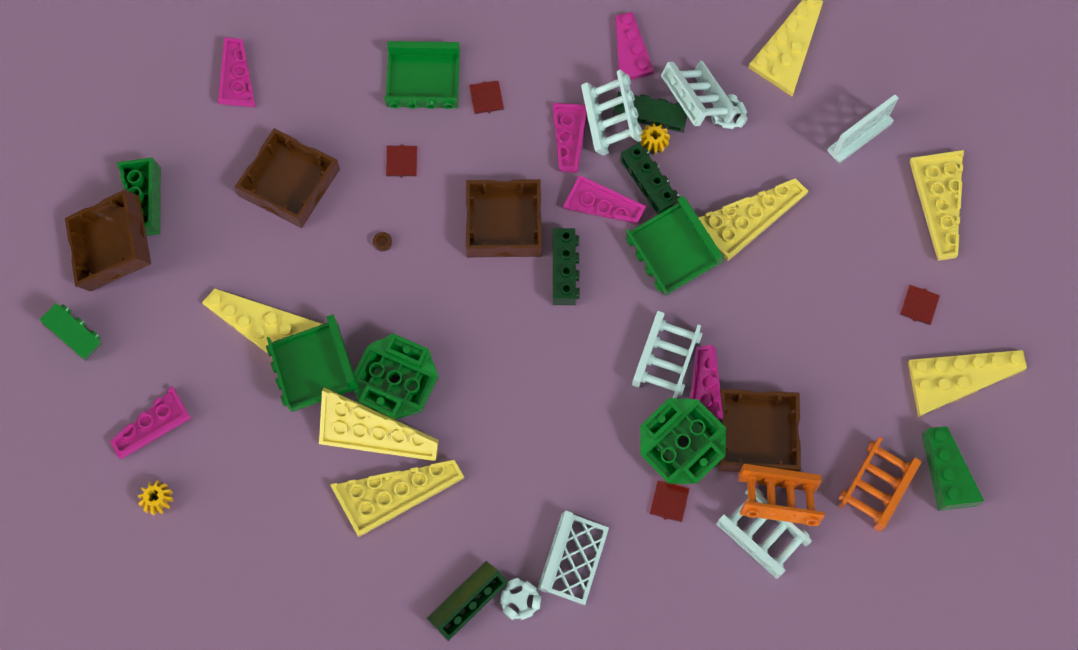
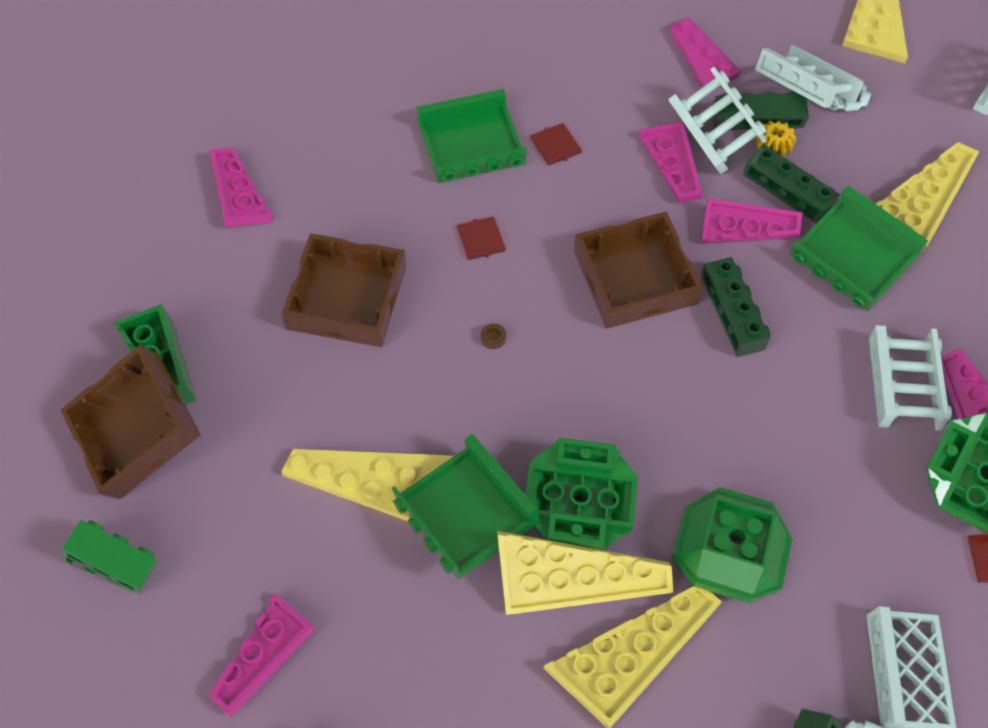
camera: 15 degrees left, 10 degrees down
(483, 459) = (730, 569): none -> green piece

